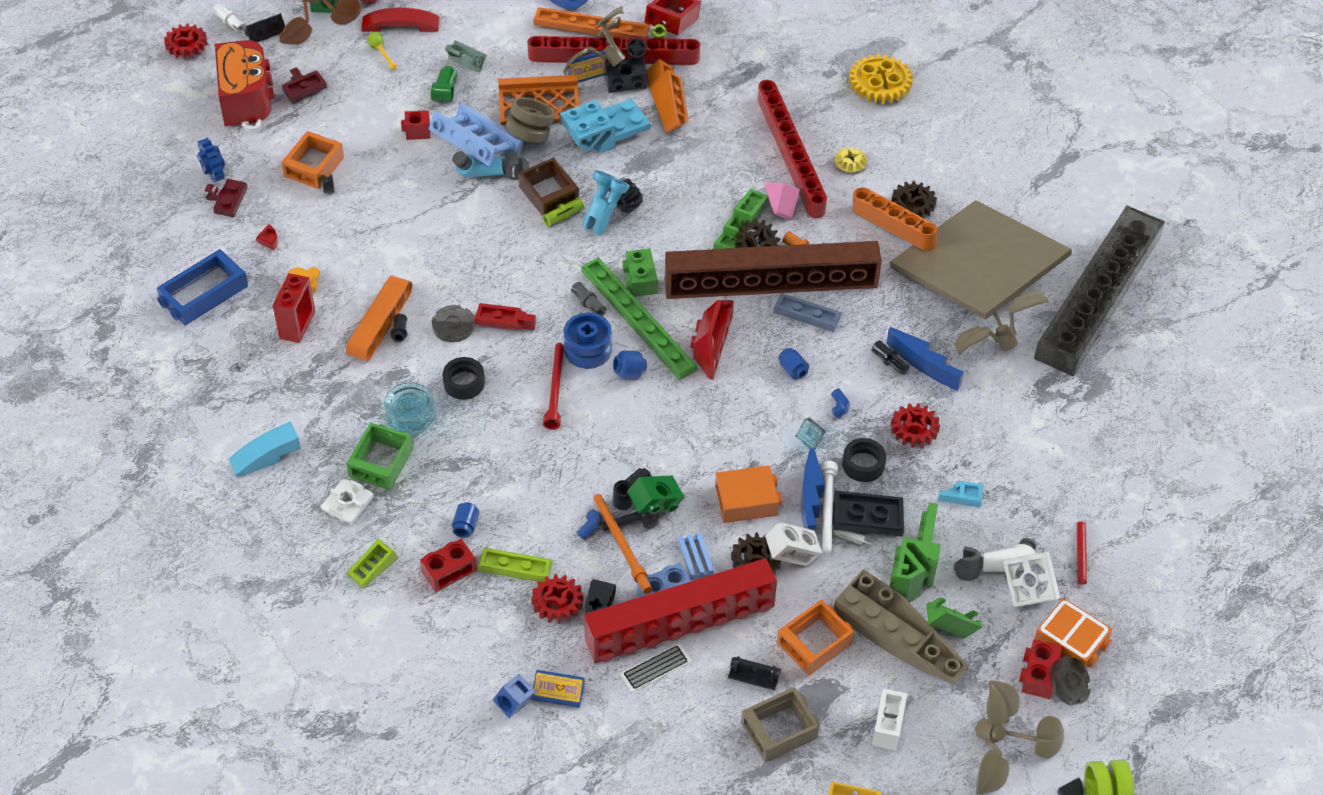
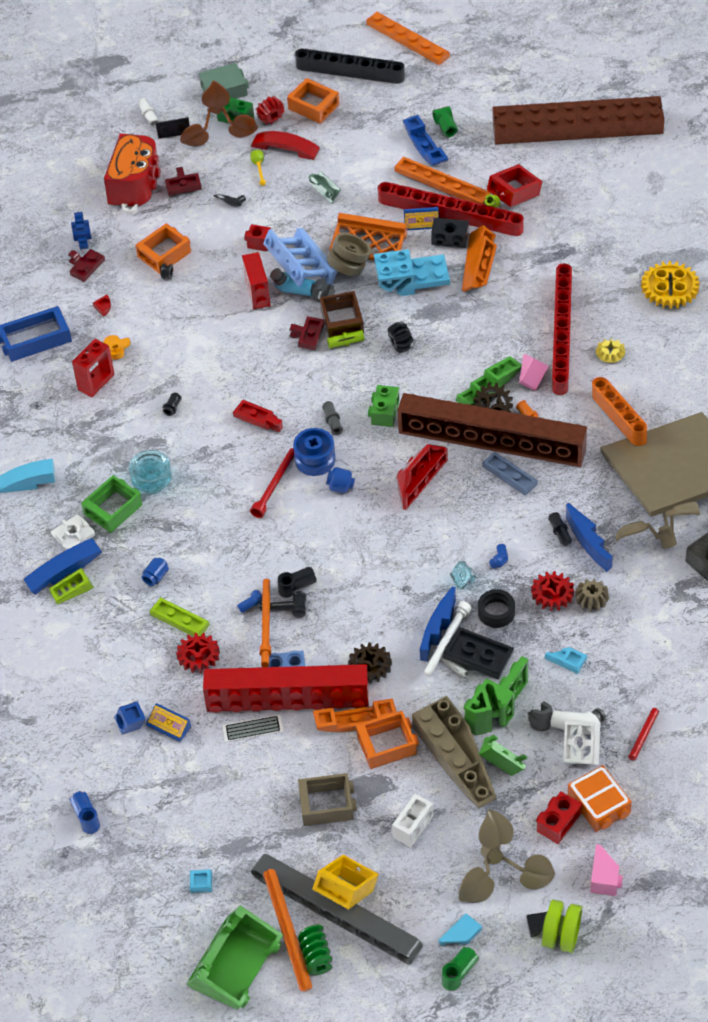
camera: 25 degrees right, 0 degrees up
(185, 41) = (105, 125): red gear -> none
(352, 541) = (62, 565): none -> blue slope
(365, 92) = (231, 200): none -> black bar
(379, 318) = (159, 392): orange beam -> none
(438, 170) = (256, 280): none -> red brick
(444, 87) = (294, 211): green piece -> none
(450, 569) = (126, 603): red brick -> none
(451, 329) = (220, 414): clear smoke tile -> none
(466, 391) = (203, 446): black tyre -> none
(520, 213) = (309, 333): none -> dark red plate
(599, 595) = (231, 658): black piece -> none
(602, 207) = (375, 342): medium azure piece -> none
(612, 52) = (440, 210): dark tan plant -> none
(634, 46) = (461, 210): black wheel -> none
(639, 318) = (367, 444): bright green tile -> none
(656, 494) = (309, 590): green brick -> none
(691, 541) = (324, 636): light blue tile -> none
(747, 493) = (386, 610): orange brick -> none
(754, 673) = (325, 754): black hinge -> none
(767, 624) = (346, 720): none -> orange slope
(793, 363) = (475, 513): blue brick -> none
(793, 544) = (401, 660): white brick -> none
(915, 198) = (646, 398): dark brown gear -> none
(958, 418) = (592, 594): none -> dark tan gear
(1070, 680) = (576, 833): clear smoke tile -> none
(1118, 715) = (605, 874): none -> bright pink slope

